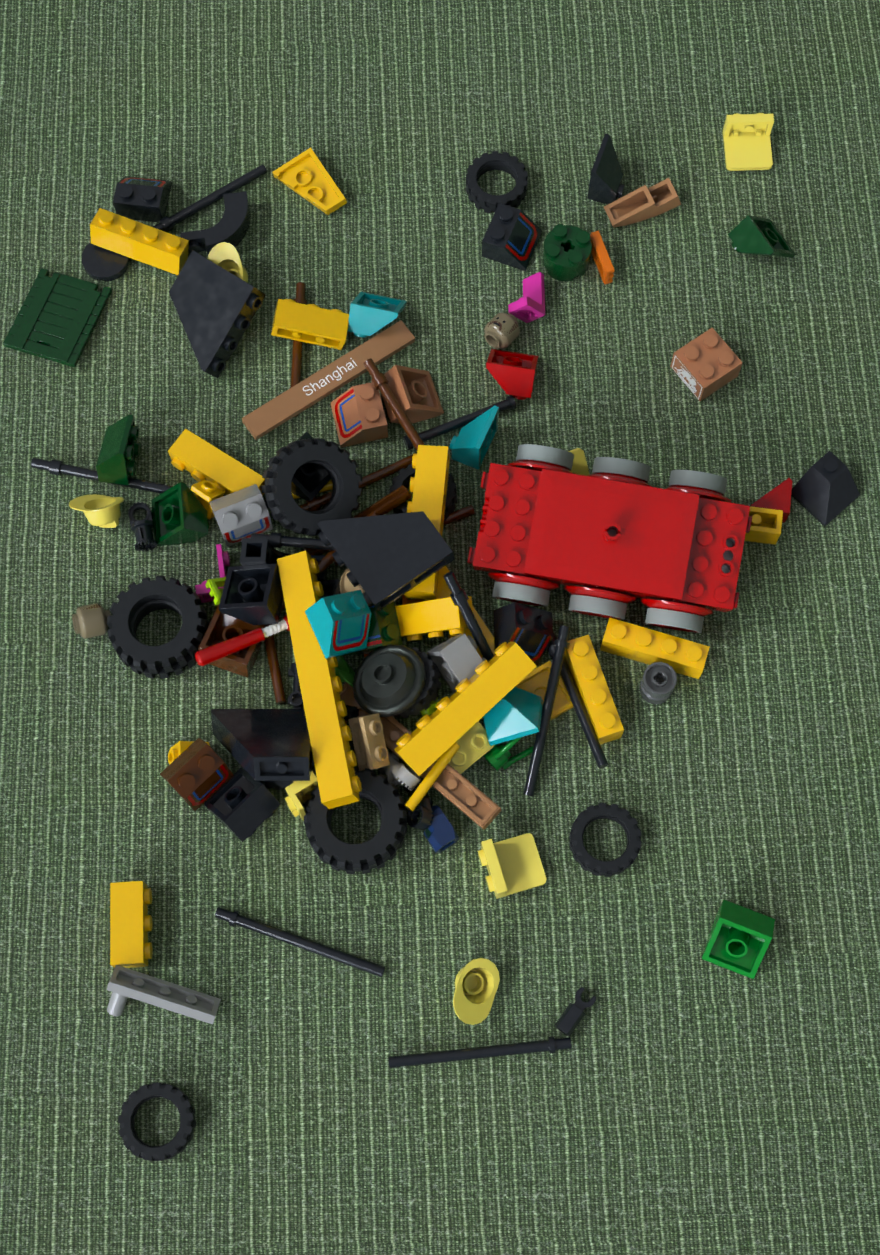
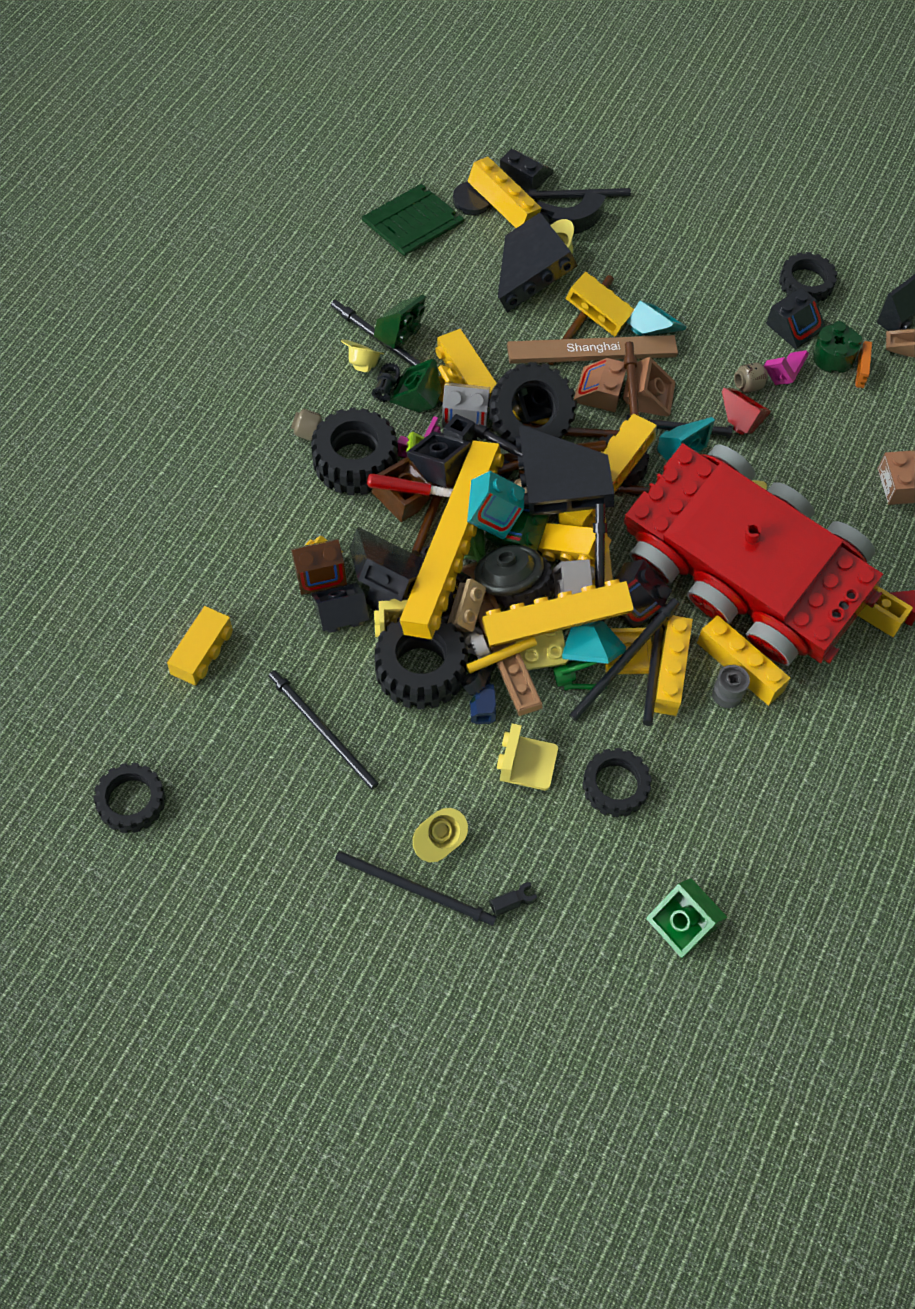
camera: 25 degrees right, 10 degrees down
(160, 993) = (190, 702): light grey piece -> none
(311, 181) = (660, 214): yellow wing -> none

